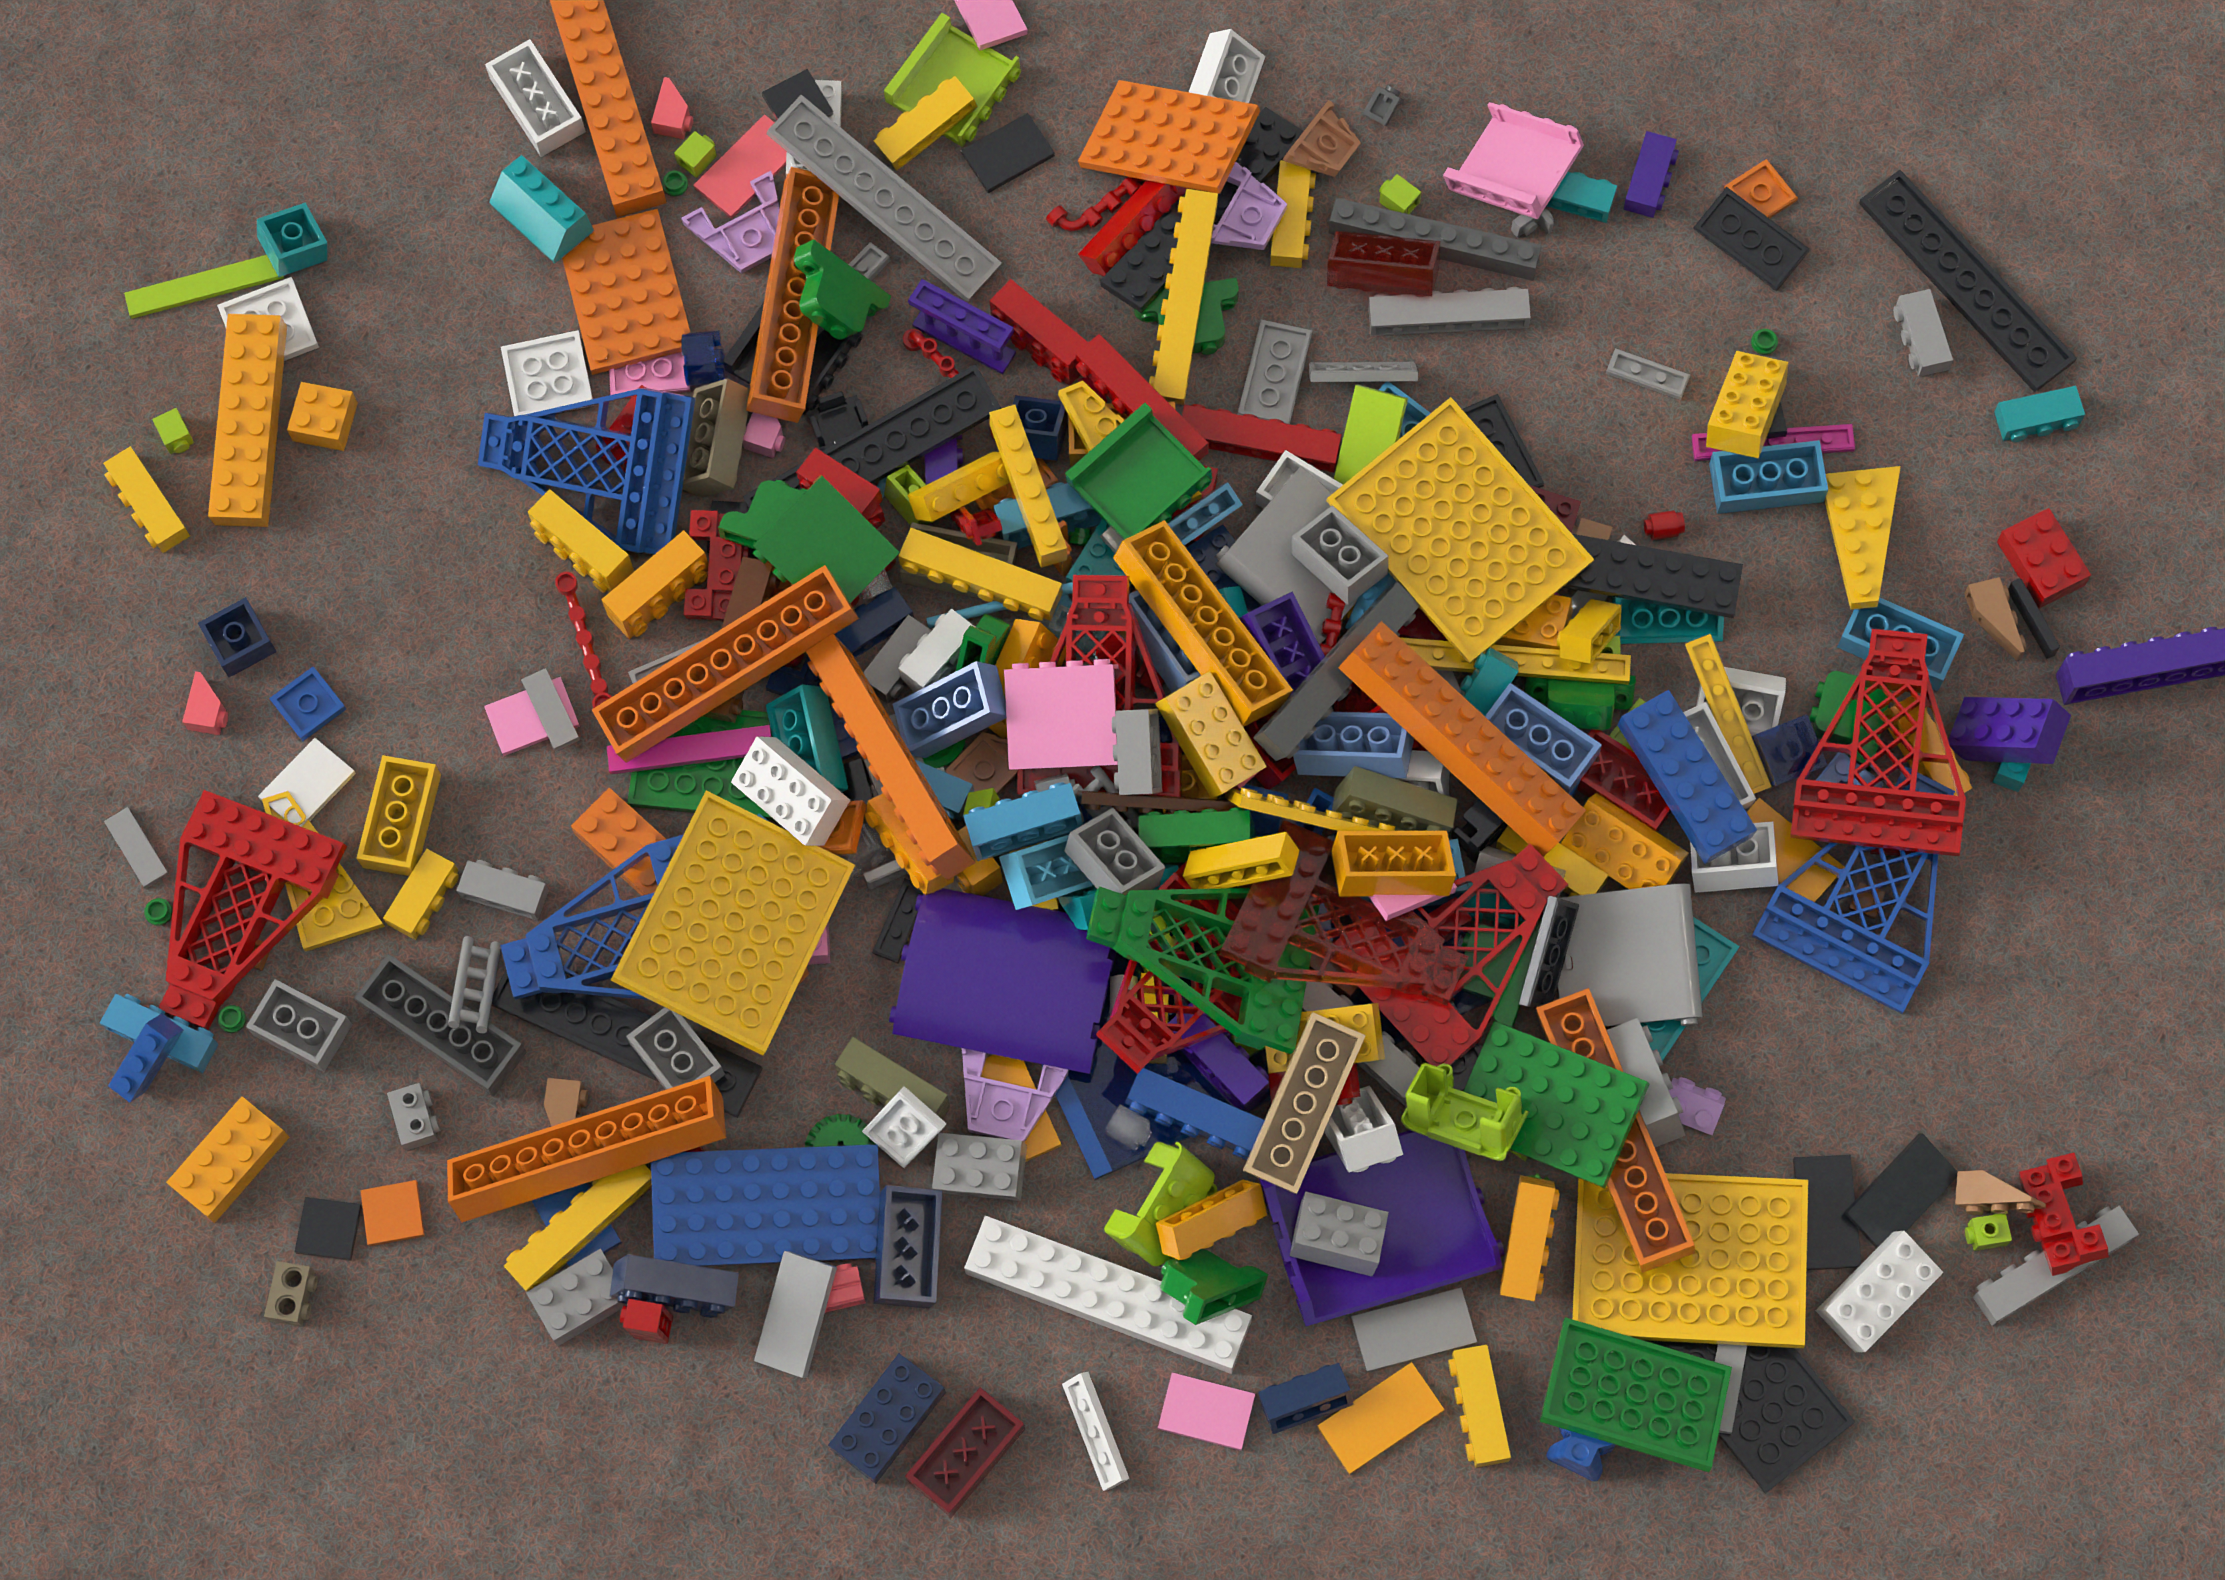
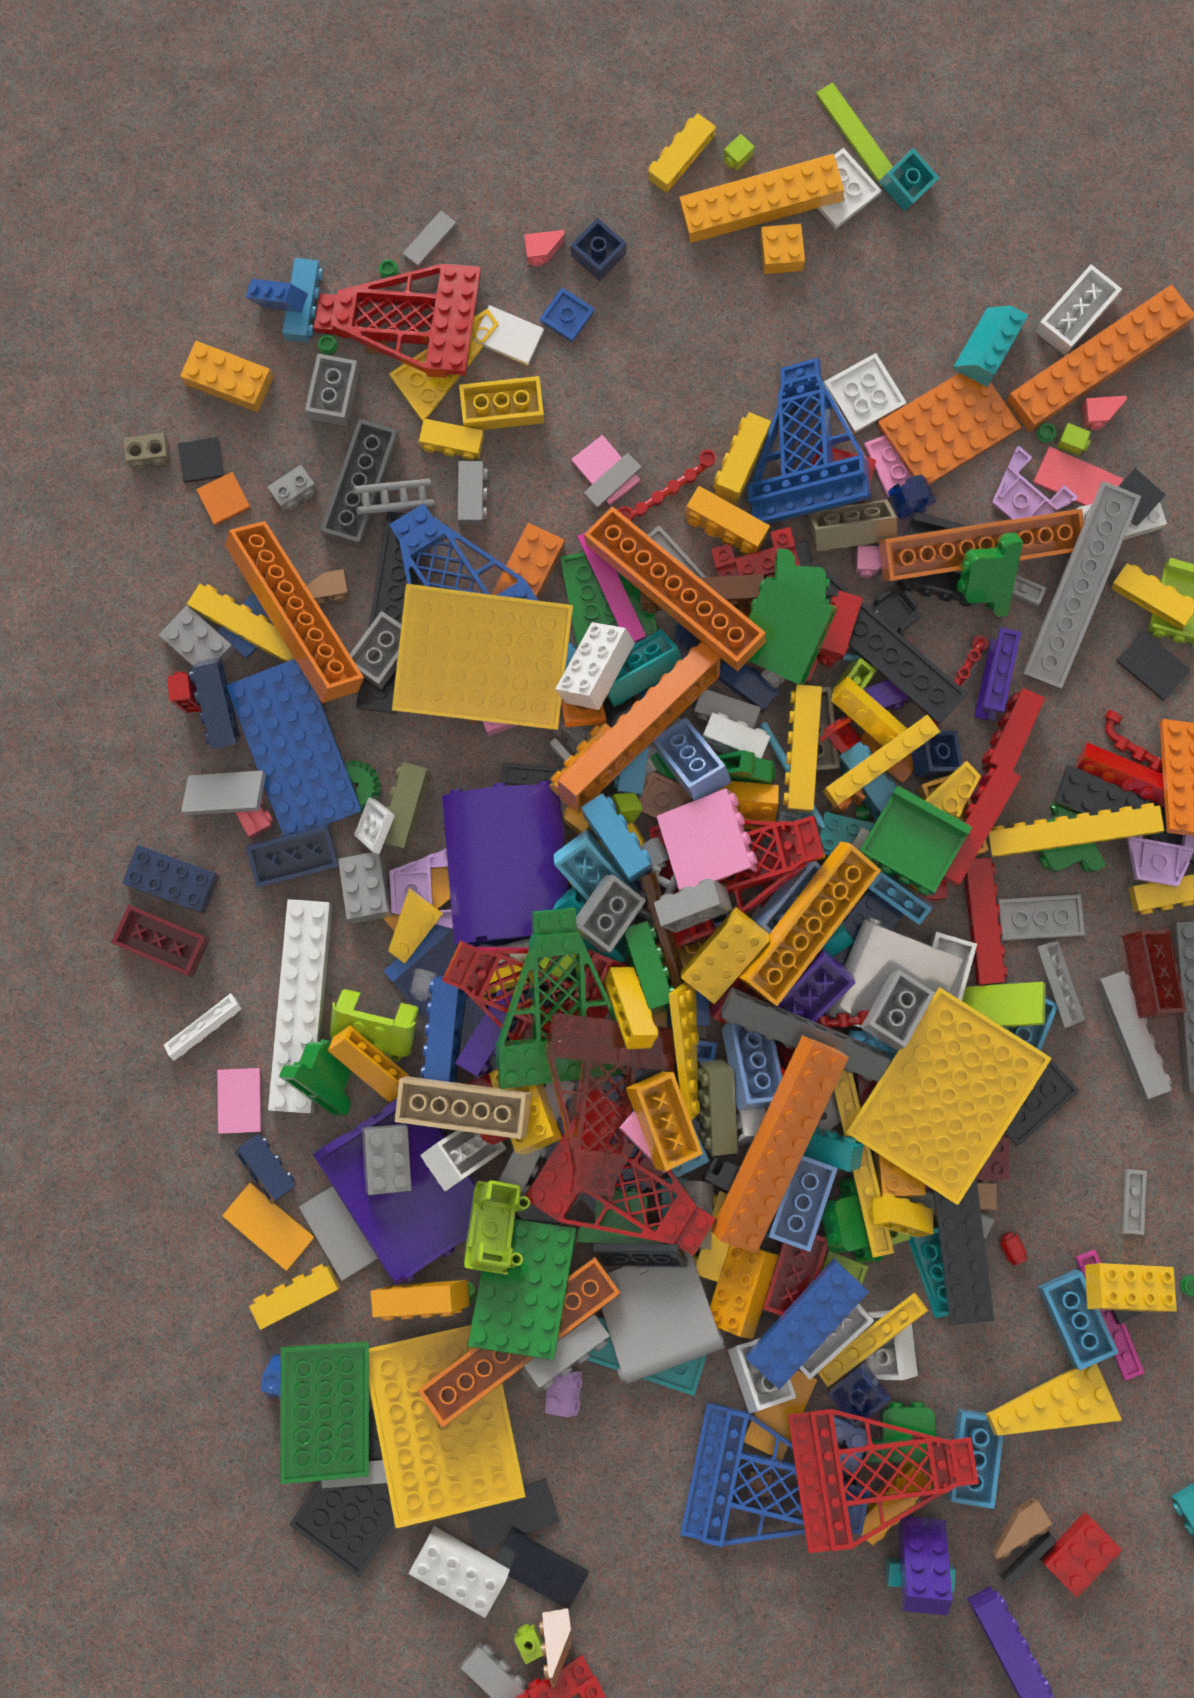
camera: 70 degrees right, 10 degrees up
(1049, 1116) = (413, 925): none -> yellow wing

